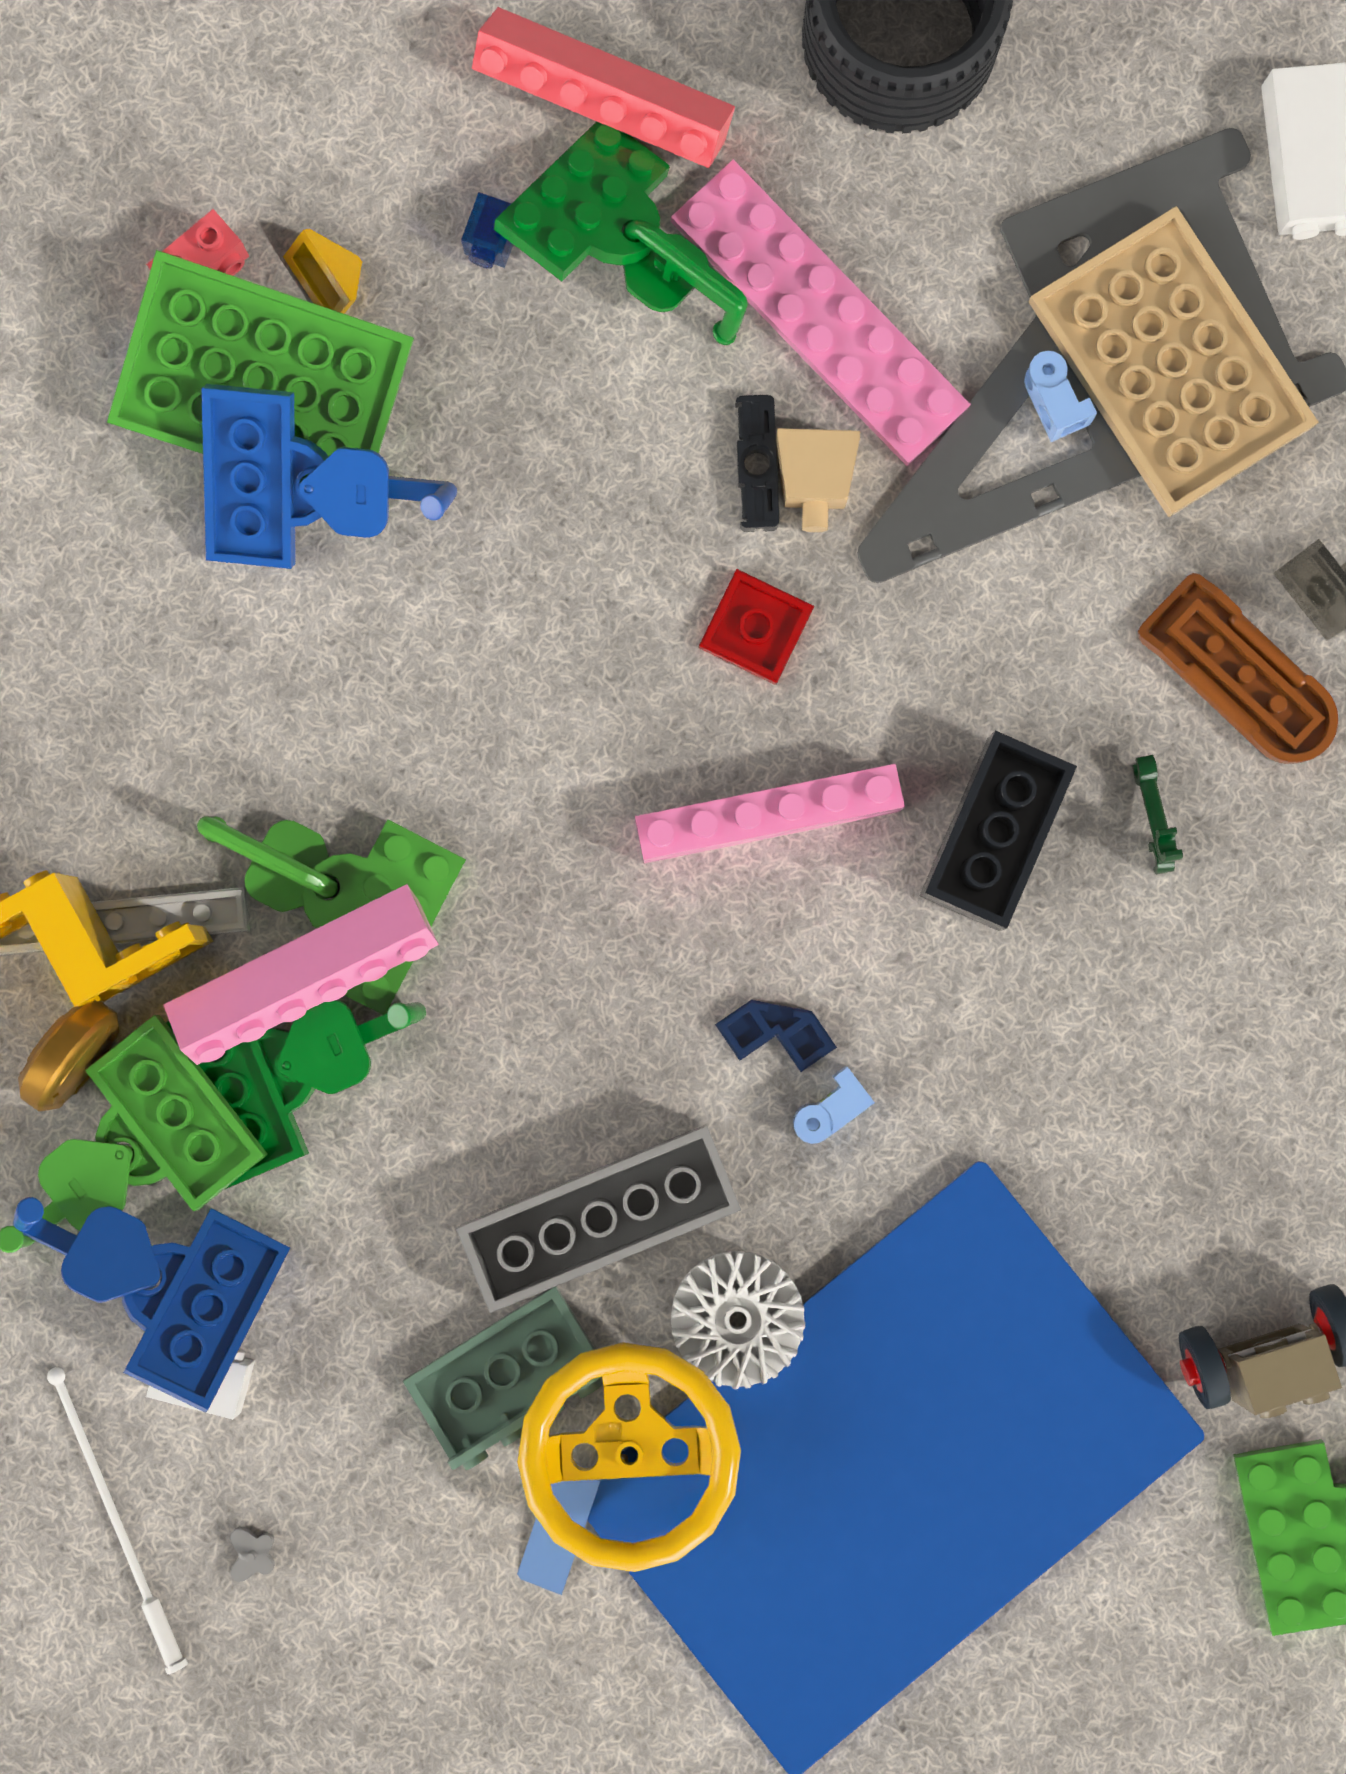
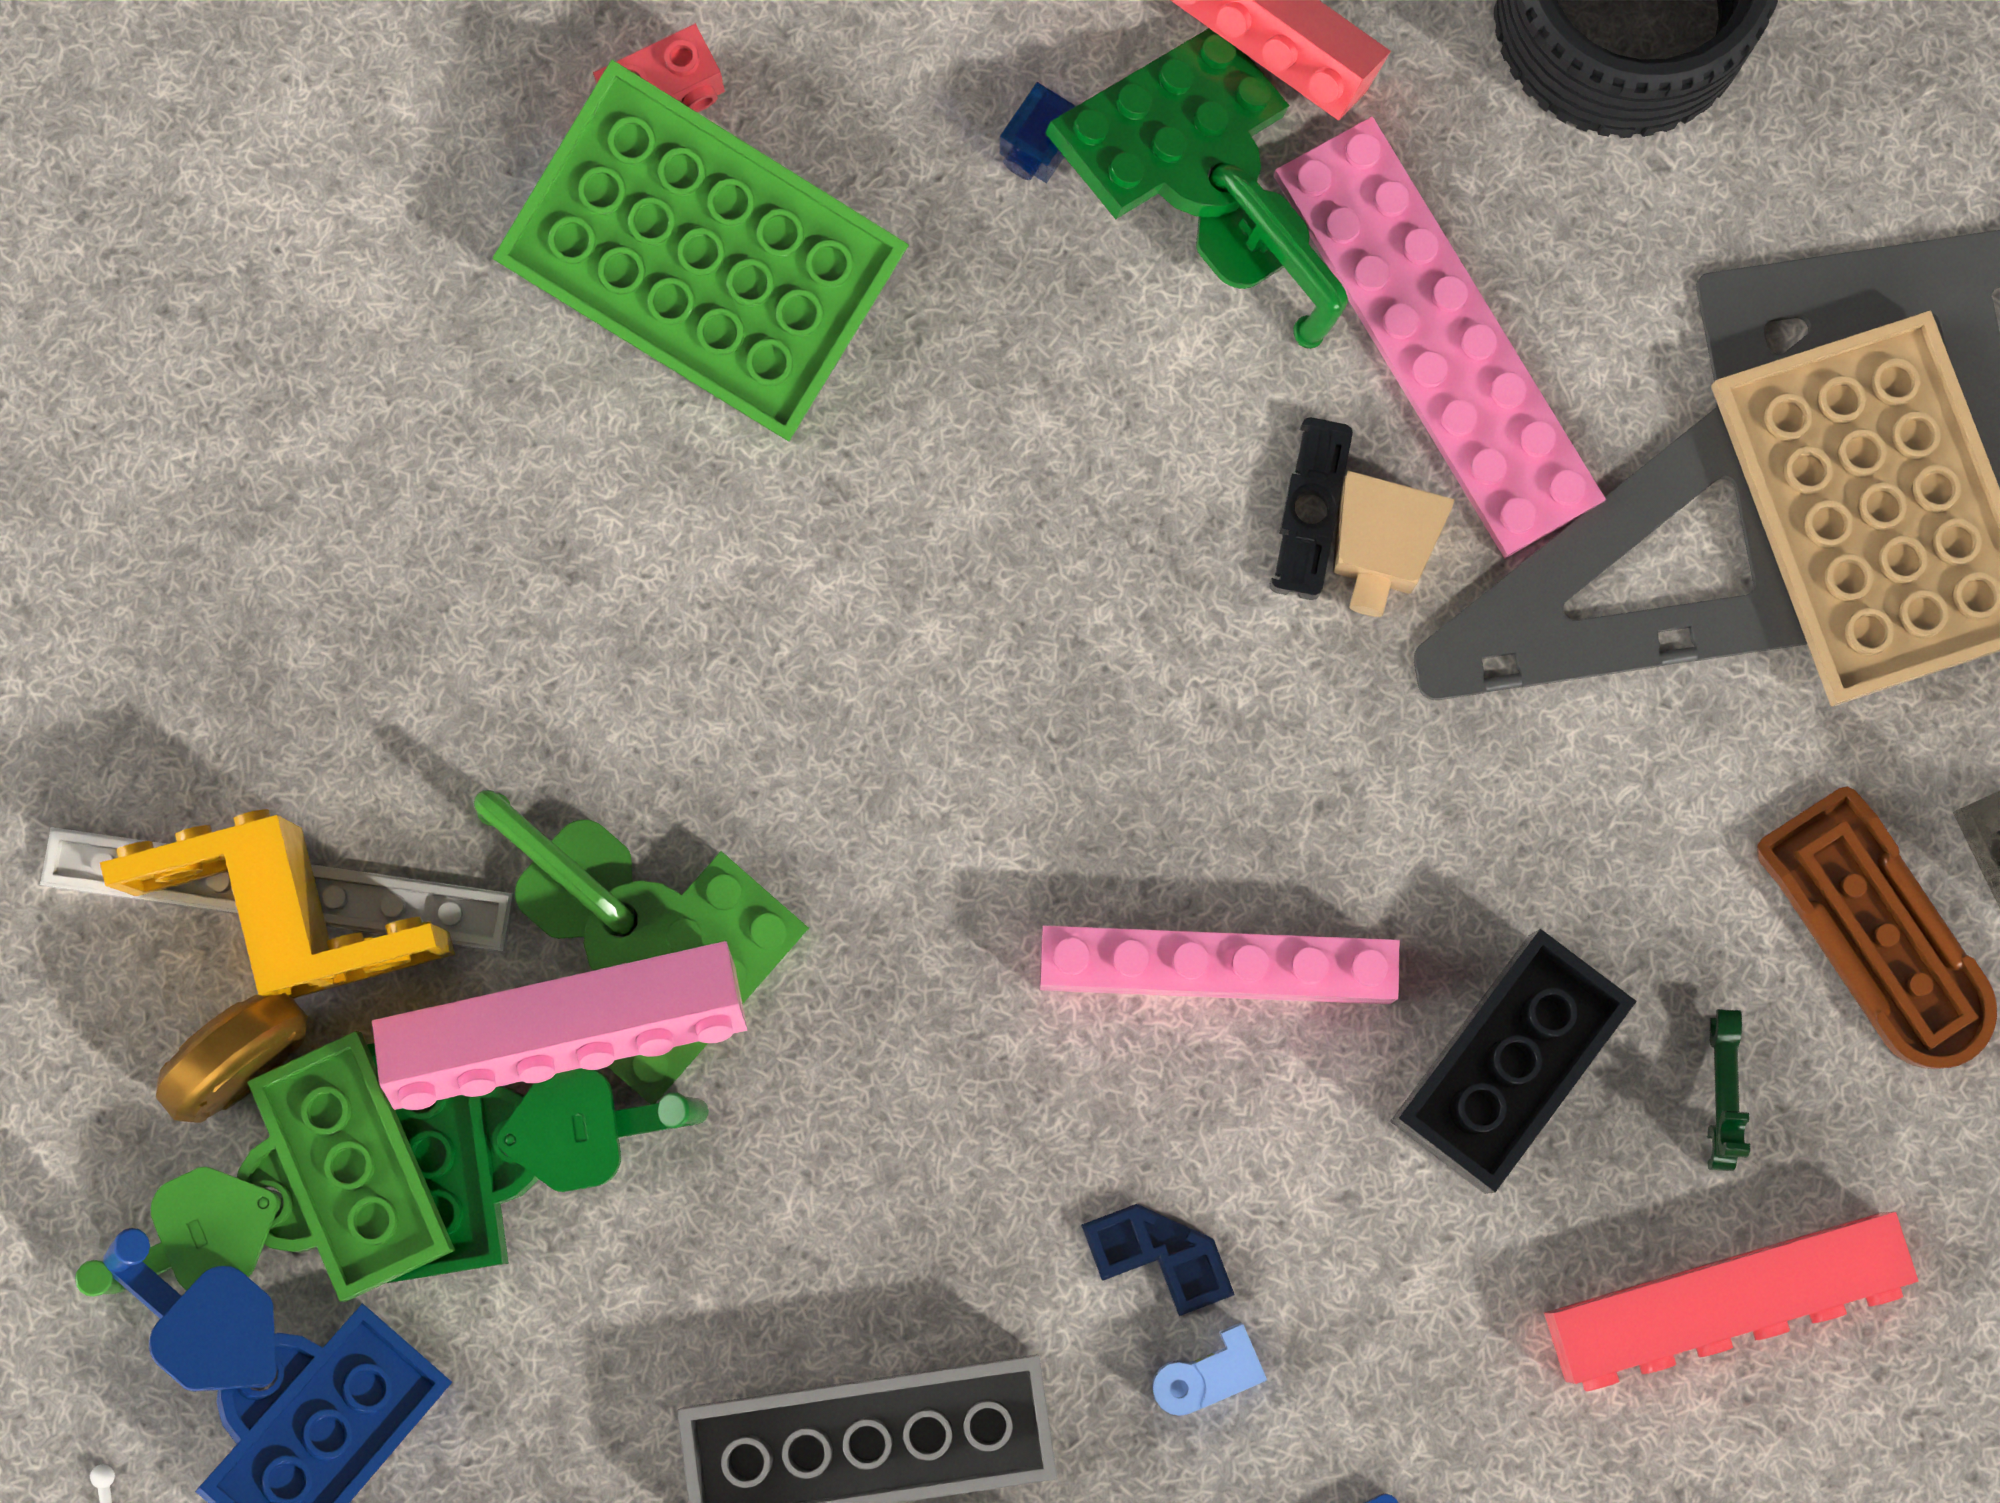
camera: 15 degrees right, 5 degrees down
(259, 487) = (665, 379): blue plate -> none
(325, 270) = (816, 133): yellow slope -> none
(756, 626) = (1259, 718): red tile -> none
(1055, 398) = (1717, 516): light blue leg -> none
(1193, 962) = (1731, 1298): none -> coral brick

